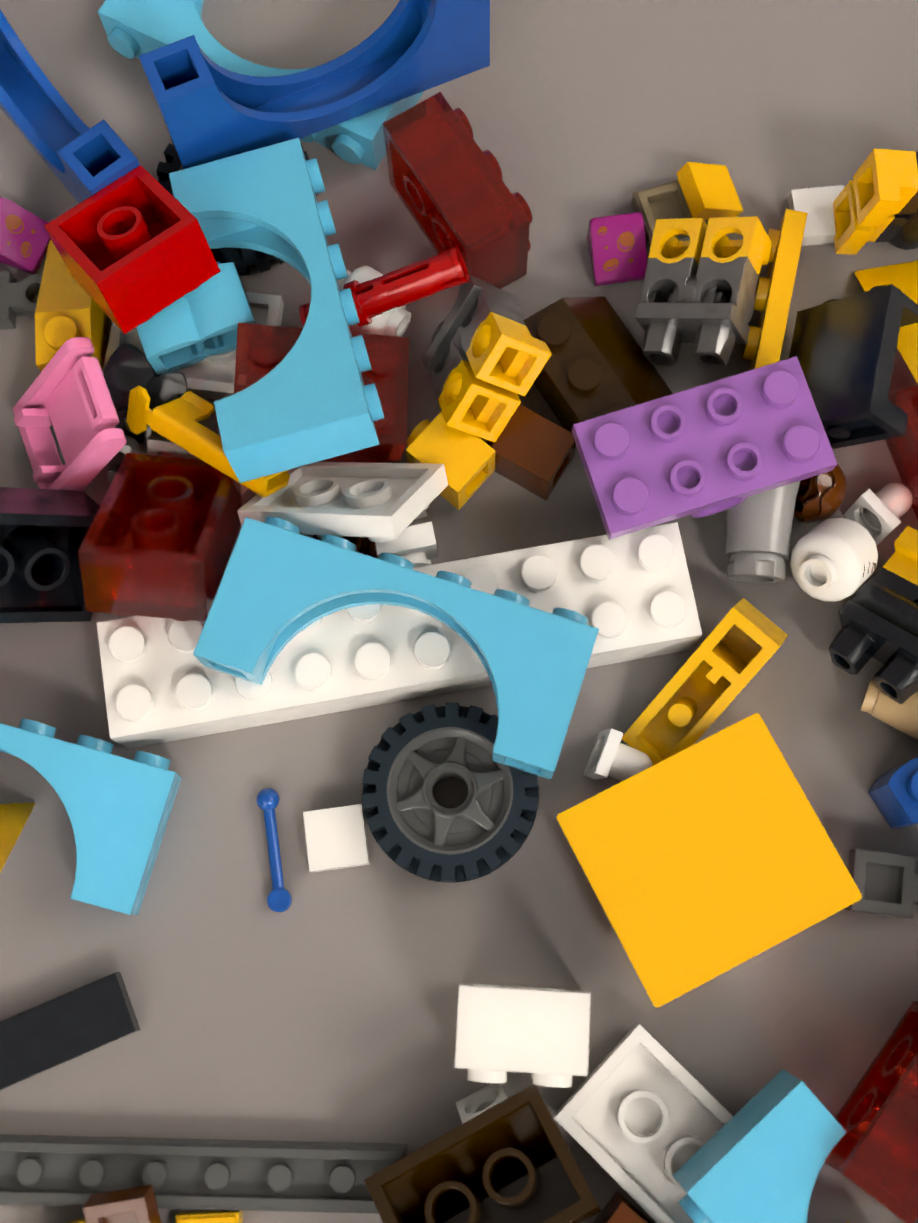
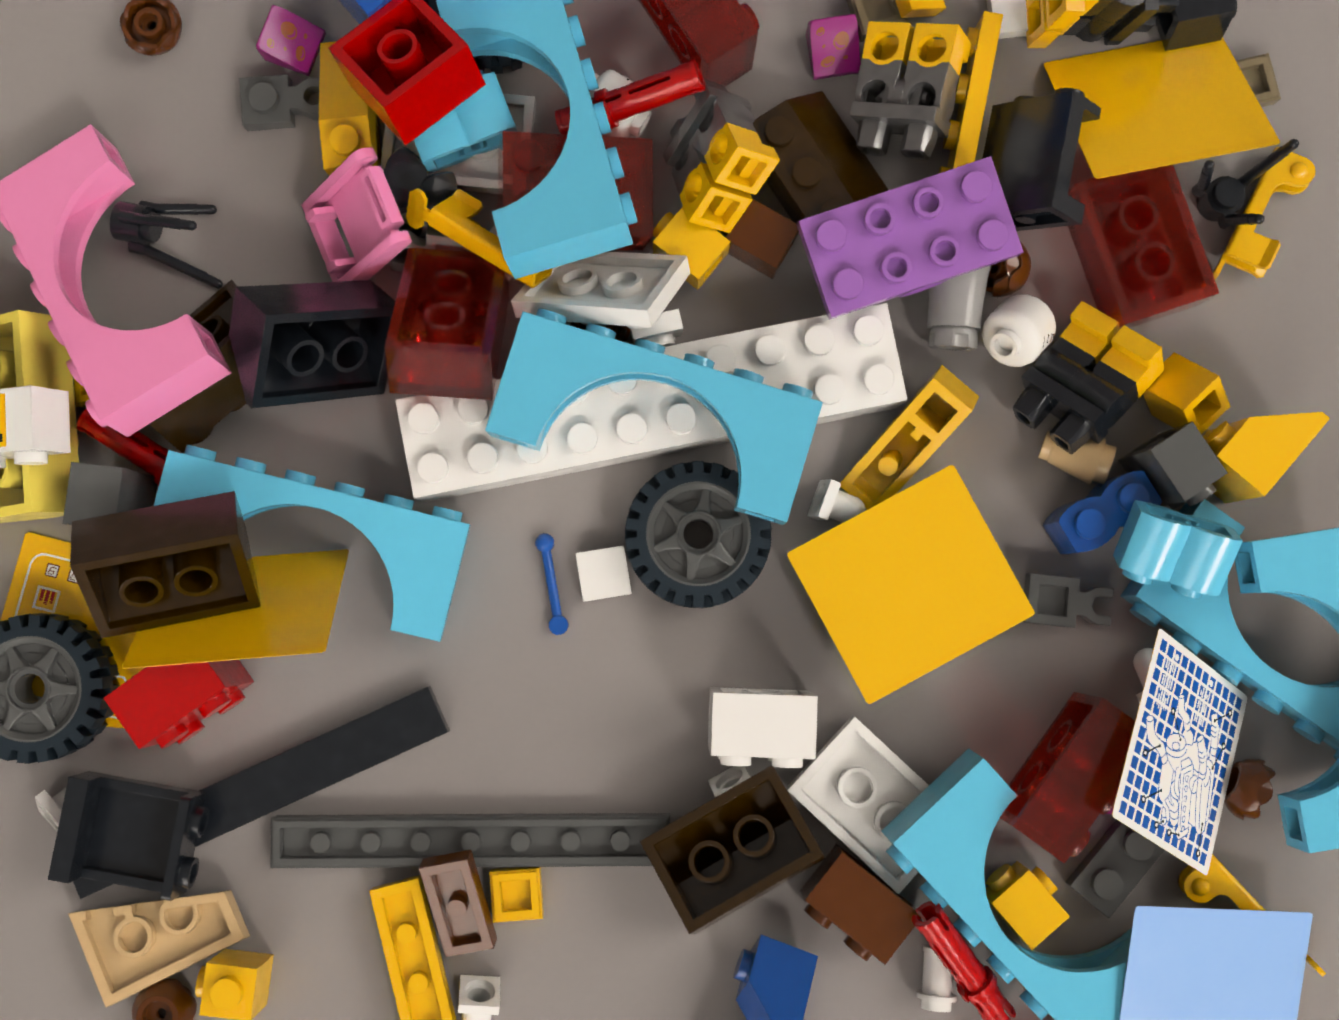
camera: 10 degrees left, 10 degrees up
(882, 510) = (1058, 286): white piece -> none

